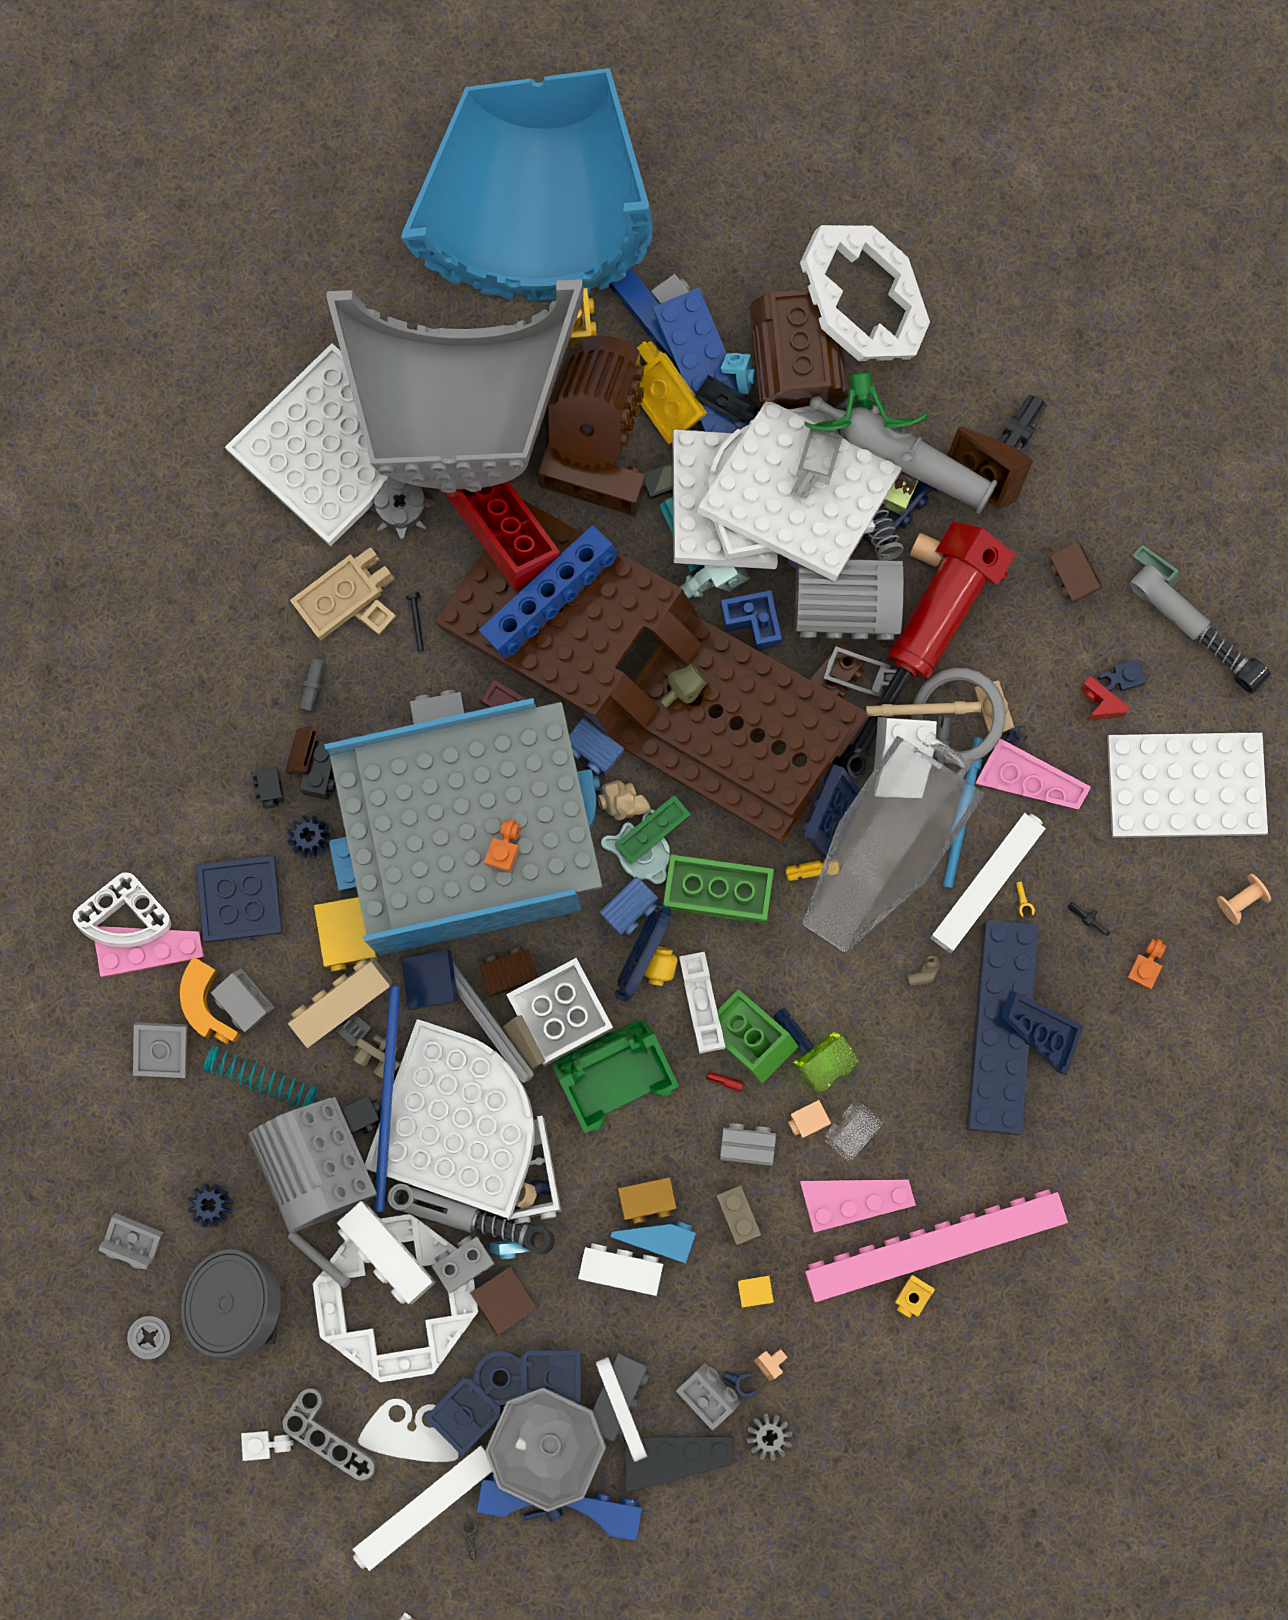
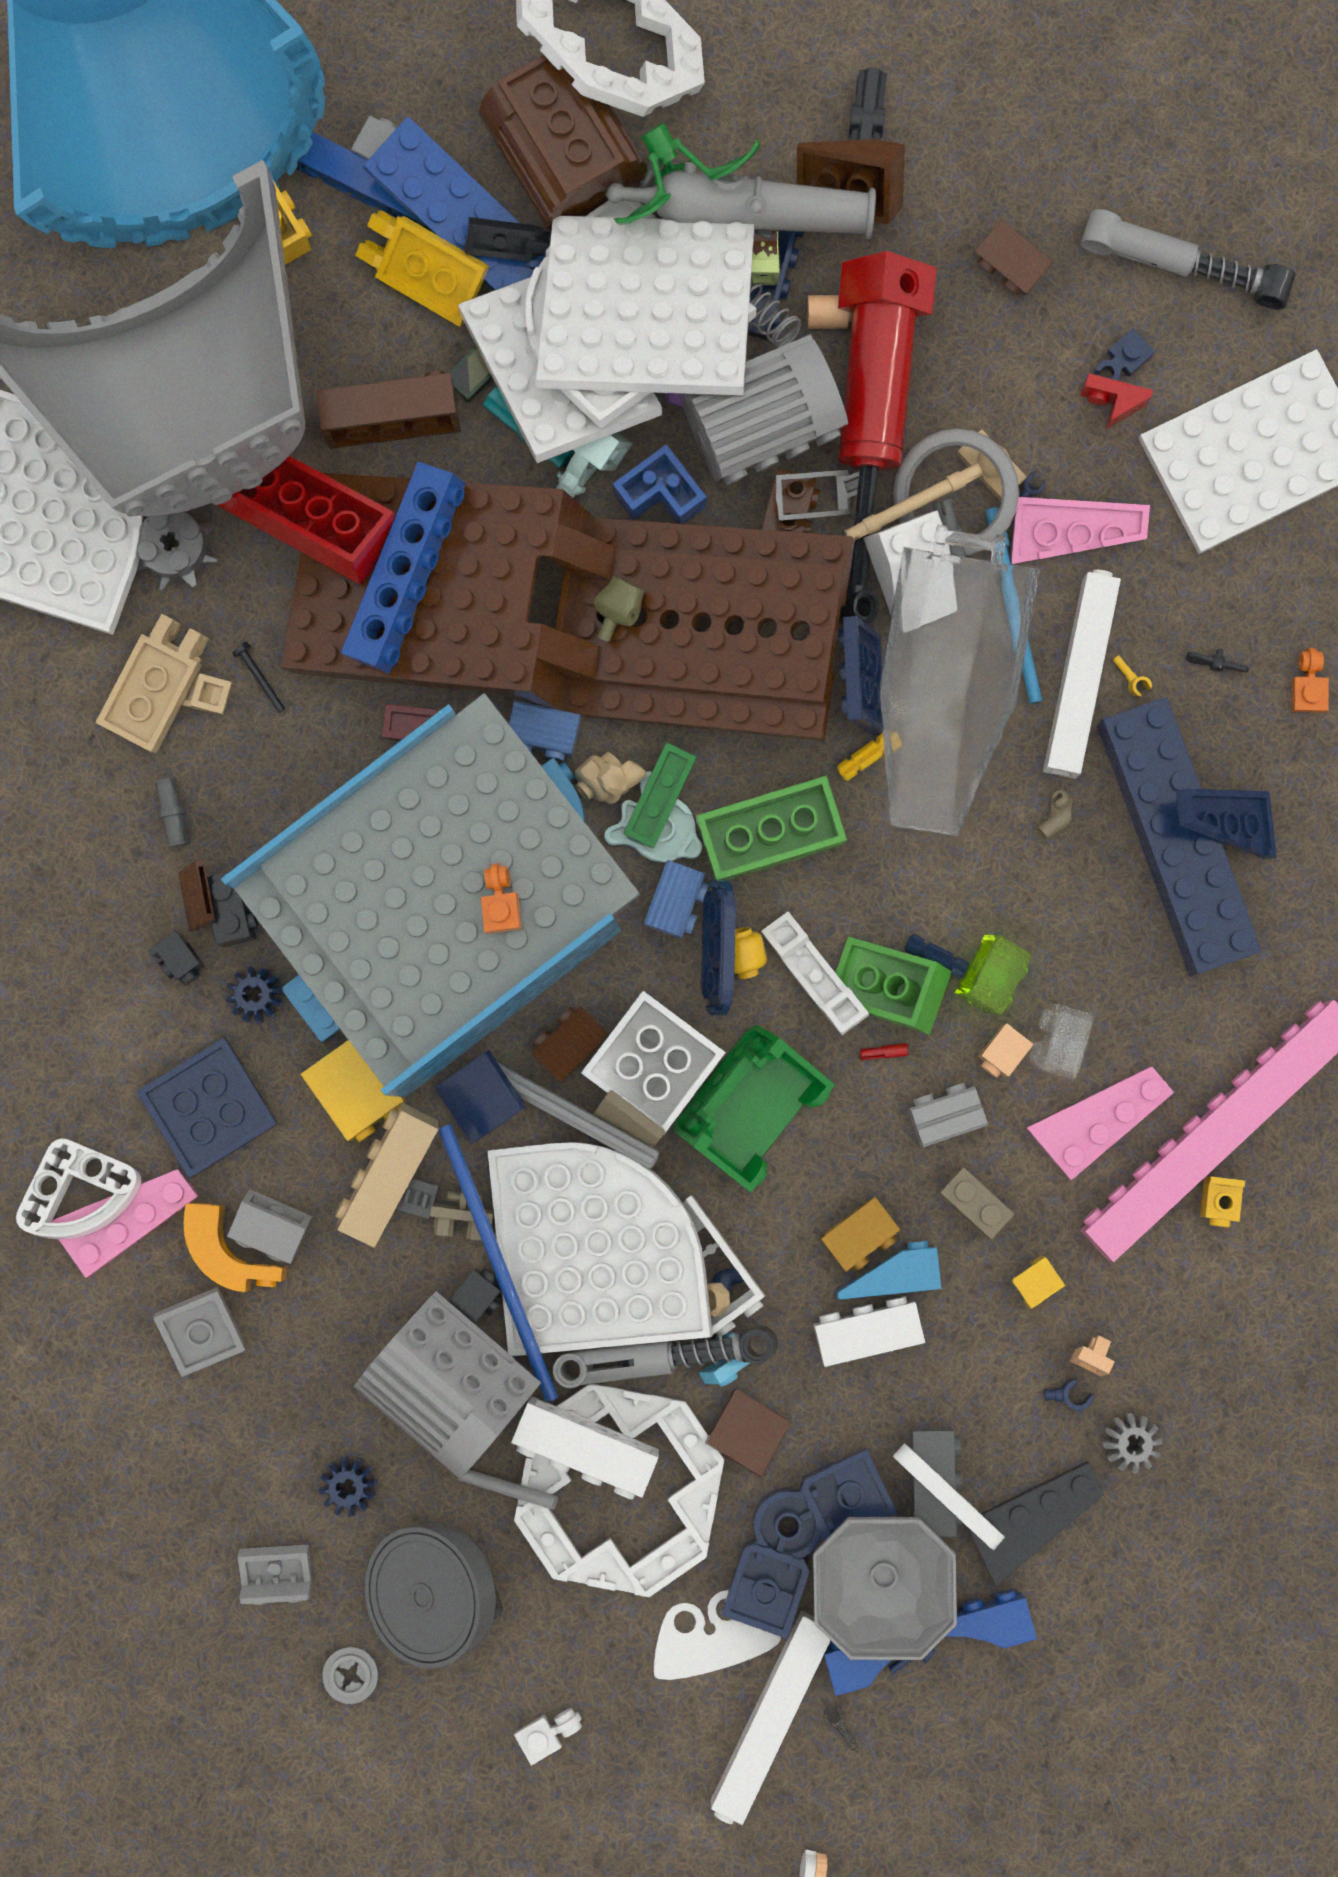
camera: 25 degrees left, 5 degrees up
(211, 1058) = (265, 1310): teal piece -> none
(332, 1439) = (625, 1690): light grey beam -> none
(432, 708) = (331, 773): light grey brick -> none
(462, 1264) = (681, 1415): light grey brick -> none
(596, 401) = (349, 309): reddish brown piece -> none
(709, 1396) = (1040, 1428): light grey bracket -> none
(741, 366) = (504, 189): medium azure bracket -> none
(815, 476) = (652, 278): light grey sword -> none
(1145, 556) = (1084, 203): sand green piece -> none

